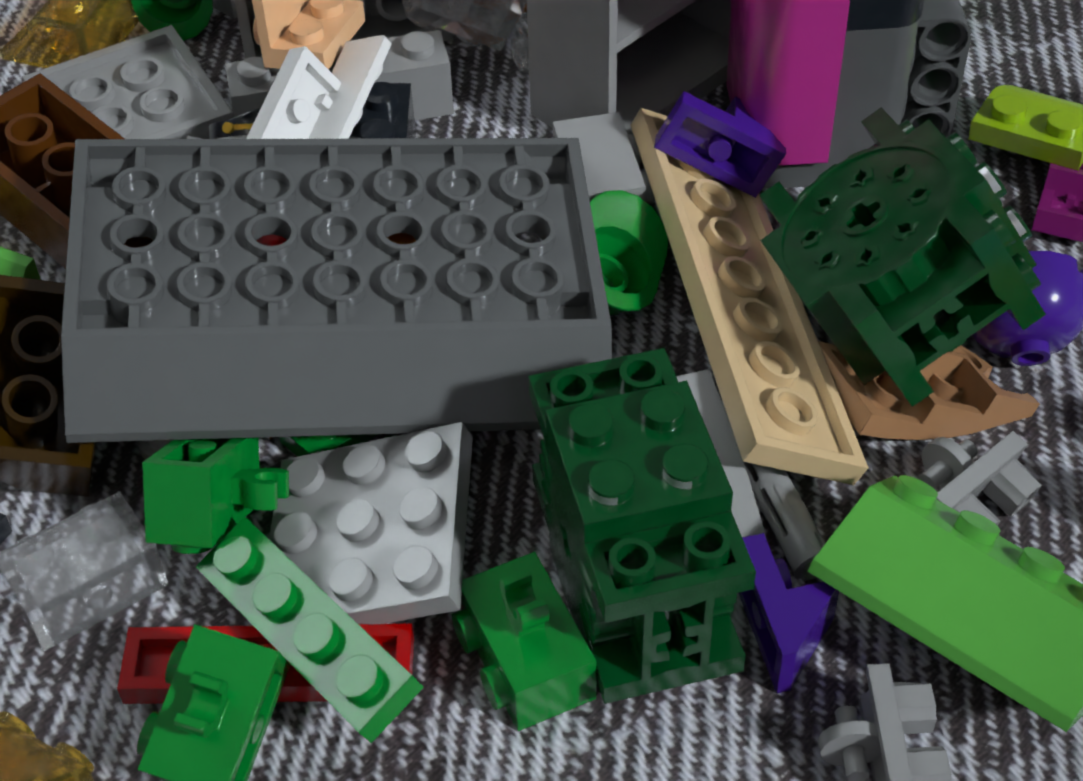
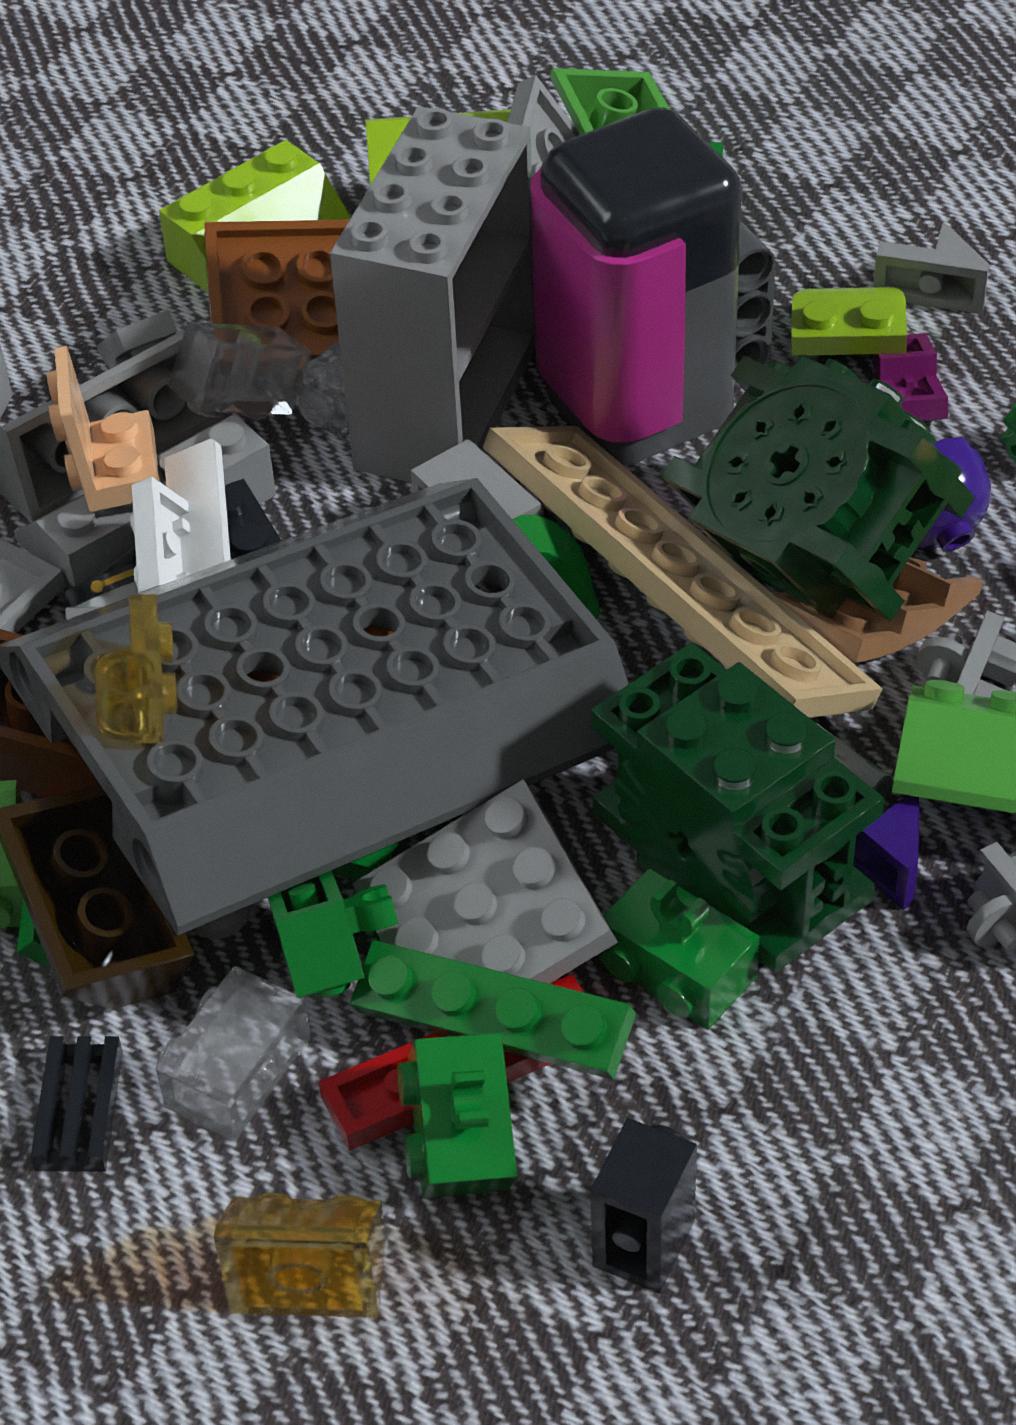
camera: 25 degrees left, 0 degrees up
(134, 204) = (130, 681): none -> clear yellow plate
(721, 142) = (588, 436): dark purple slope -> none

